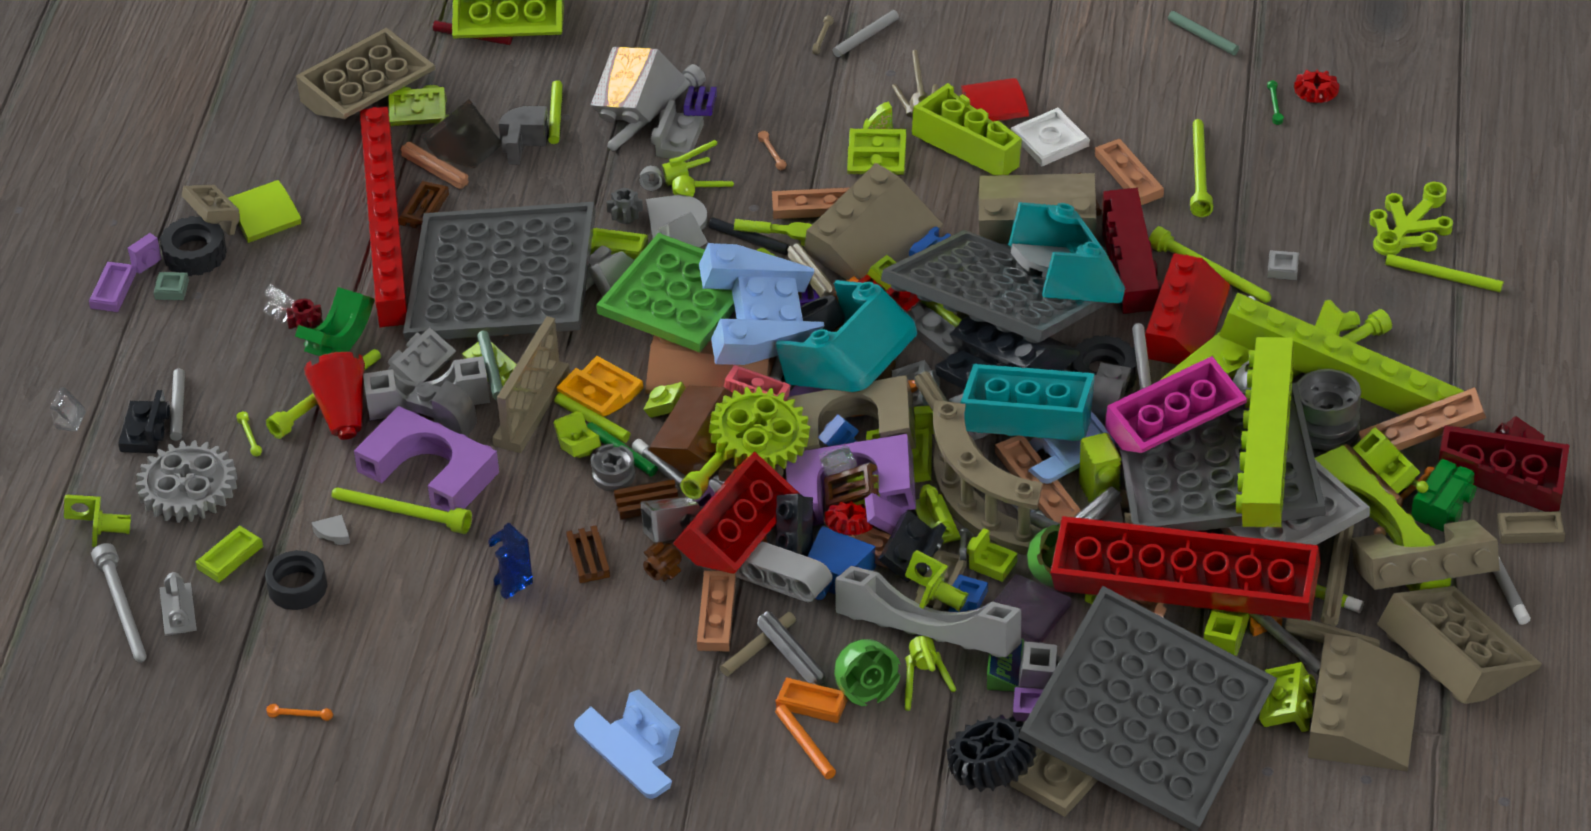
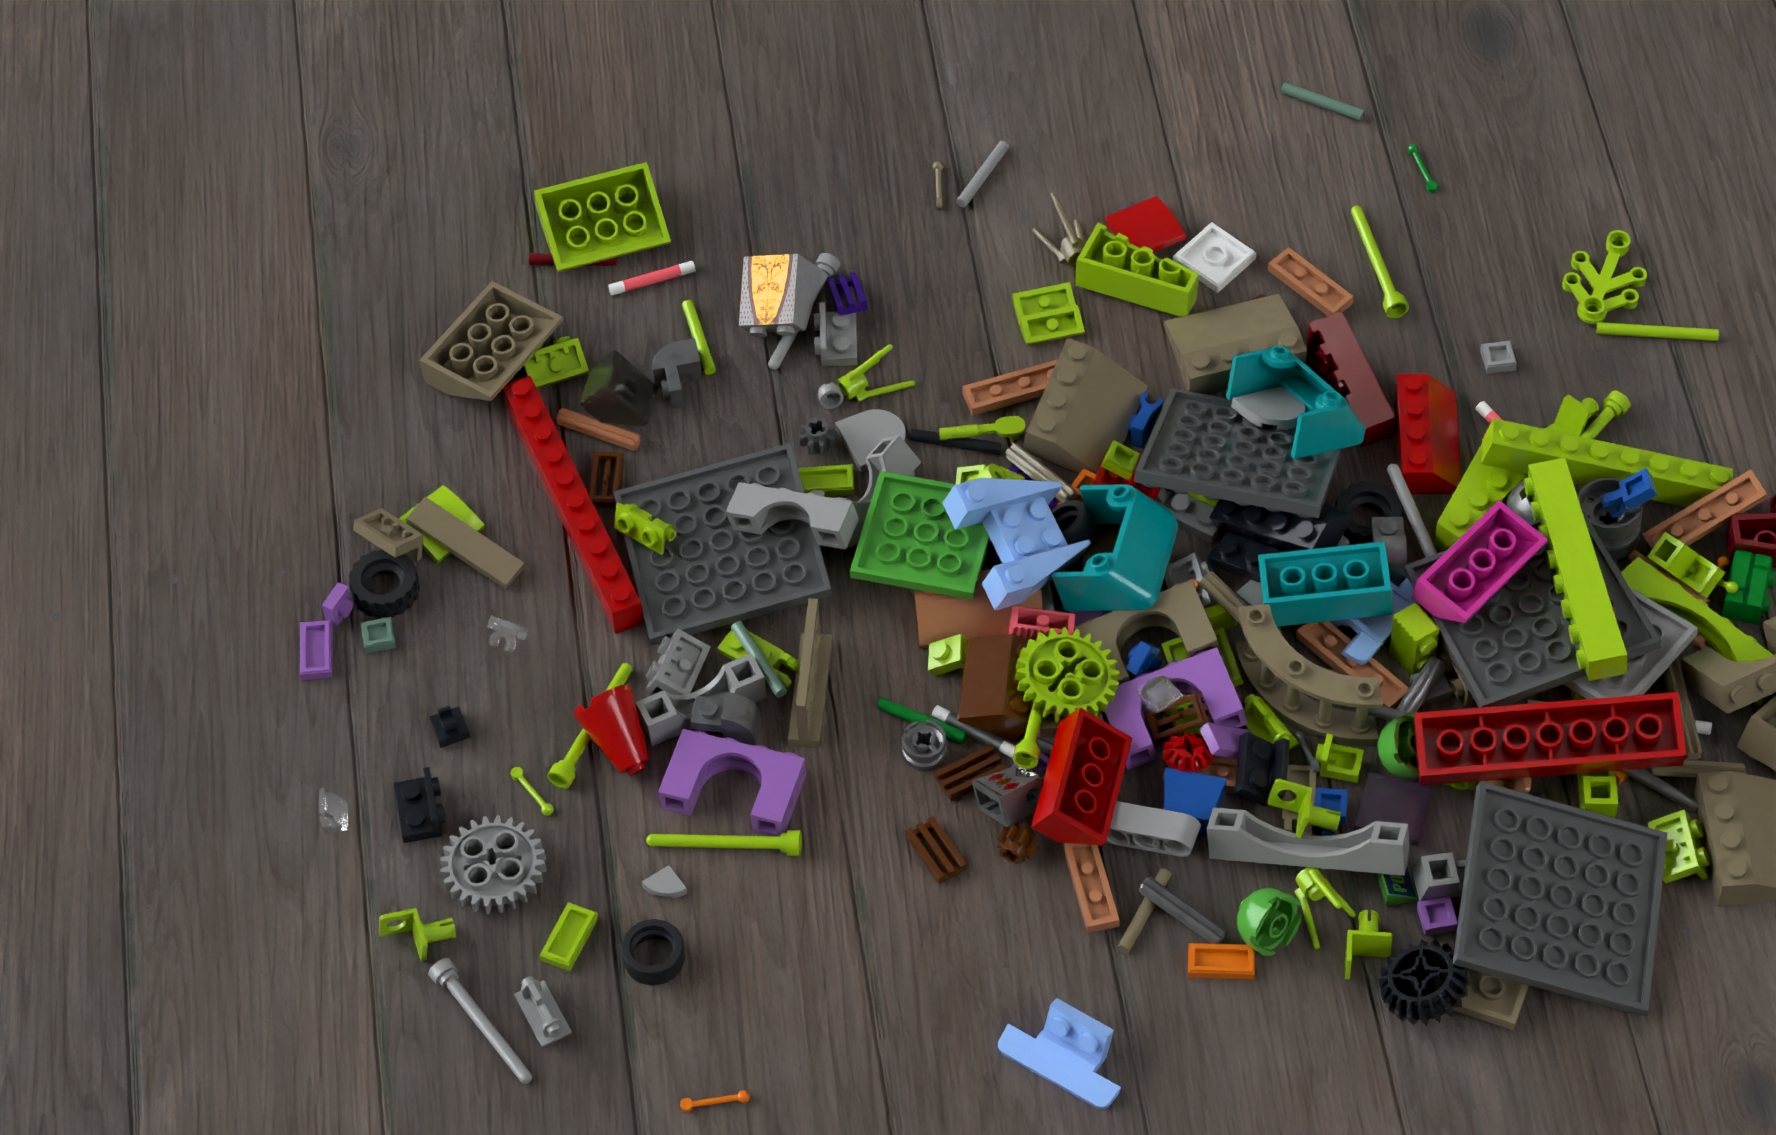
camera: 15 degrees left, 10 degrees up
(177, 404) = (443, 774): light grey bar -> none
(199, 367) = (449, 726): none -> black tile
(276, 227) = (465, 543): none -> dark tan tile
(304, 314) = (537, 642): dark red gear -> none
(342, 325) = (580, 645): green arch -> none
(434, 242) = (638, 525): none -> lime hinge
(513, 561) = (873, 880): clear blue hinge -> none
(534, 59) = (651, 278): none -> coral bar
(541, 242) = (759, 507): none -> light grey arch
(575, 436) = (874, 719): lime bracket -> none
(591, 416) = (878, 690): lime bar -> none
(601, 386) = (874, 653): light orange slope -> none
(683, 186) = (868, 399): lime hinge -> none
(763, 136) = (924, 320): nougat hinge -> none
(794, 523) = (1140, 774): black bracket -> none
(805, 742) = (1232, 1009): orange bar -> none
(881, 118) = (1039, 276): lime tile -> none
(950, 711) = (1367, 940): none -> lime bracket
(1163, 241) = (1376, 357): lime piece -> none
(1306, 90) = (1450, 148): red gear -> none
(1353, 381) = (1632, 492): none -> blue plate

